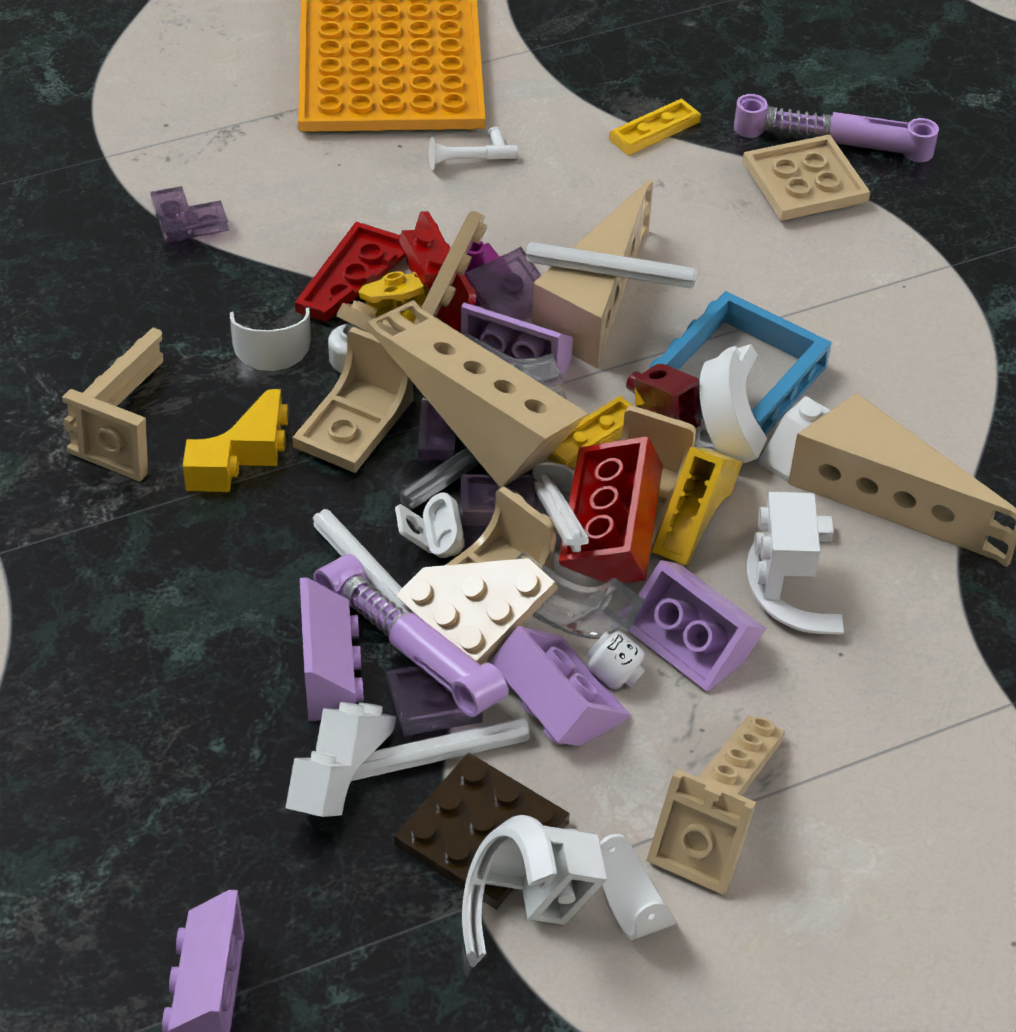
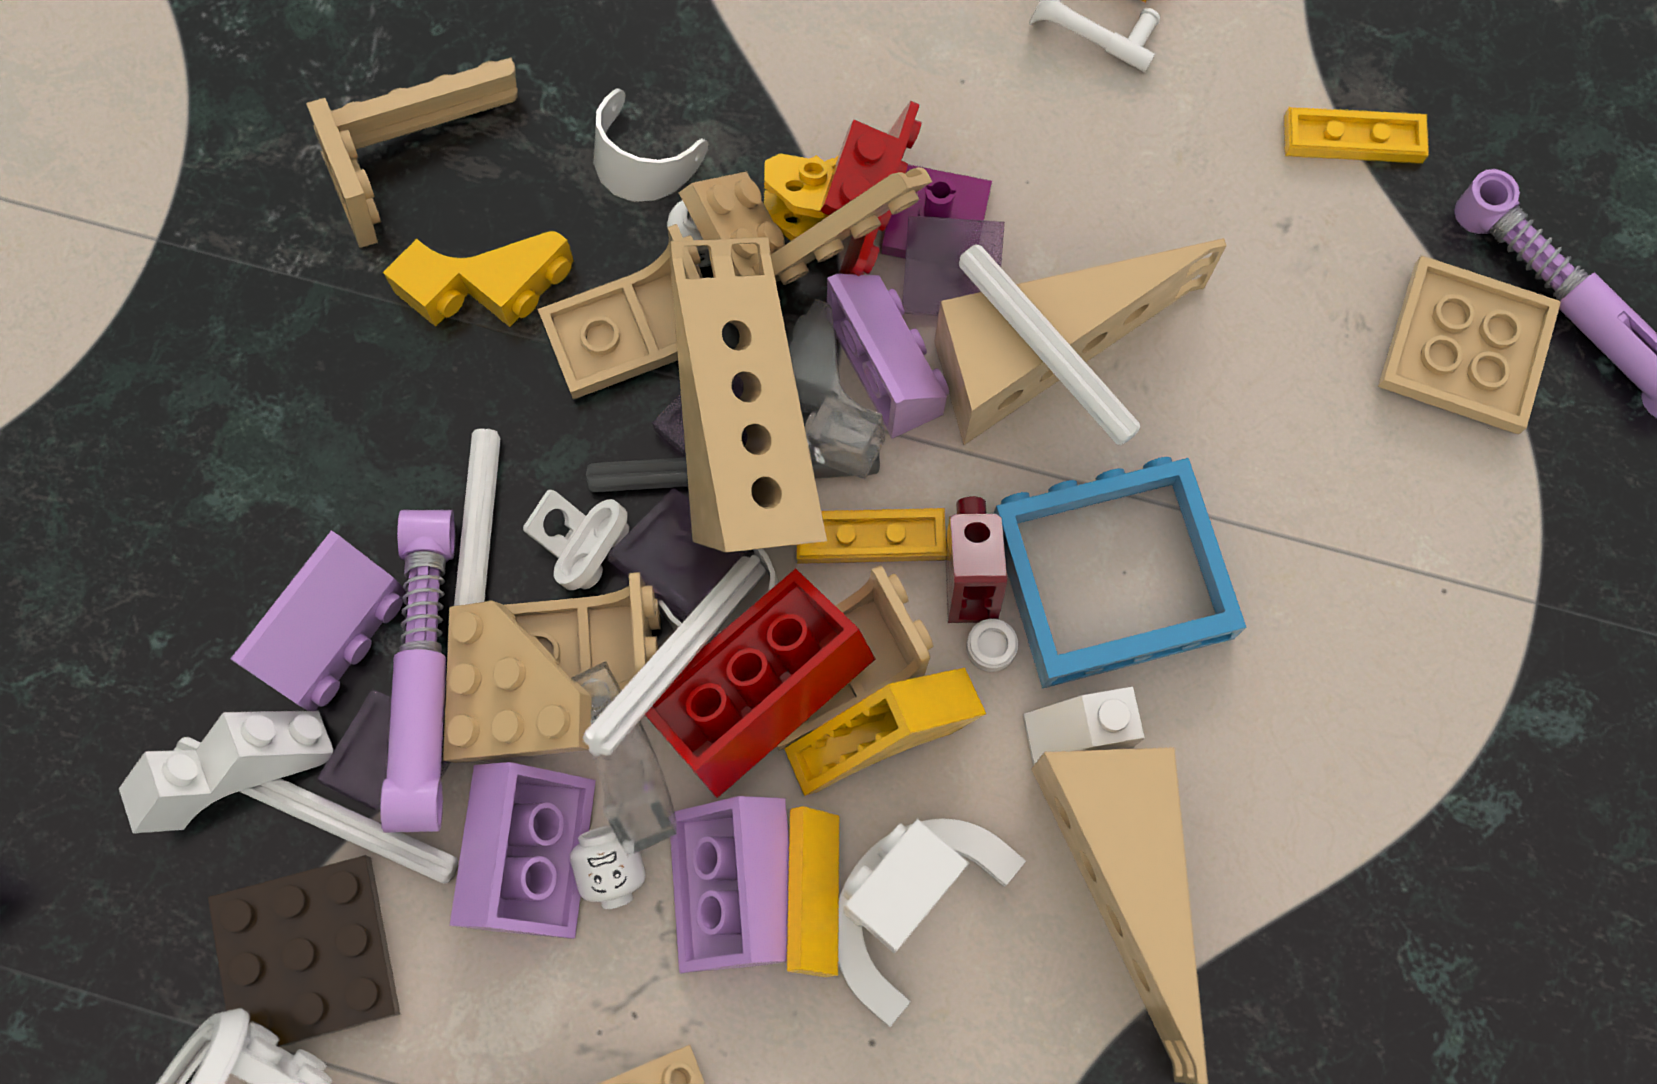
camera: 40 degrees right, 25 degrees up
(357, 260) = (803, 113): red wing -> none
(727, 406) = (1024, 623): white arch -> none
(740, 596) = (813, 892): none -> yellow tile

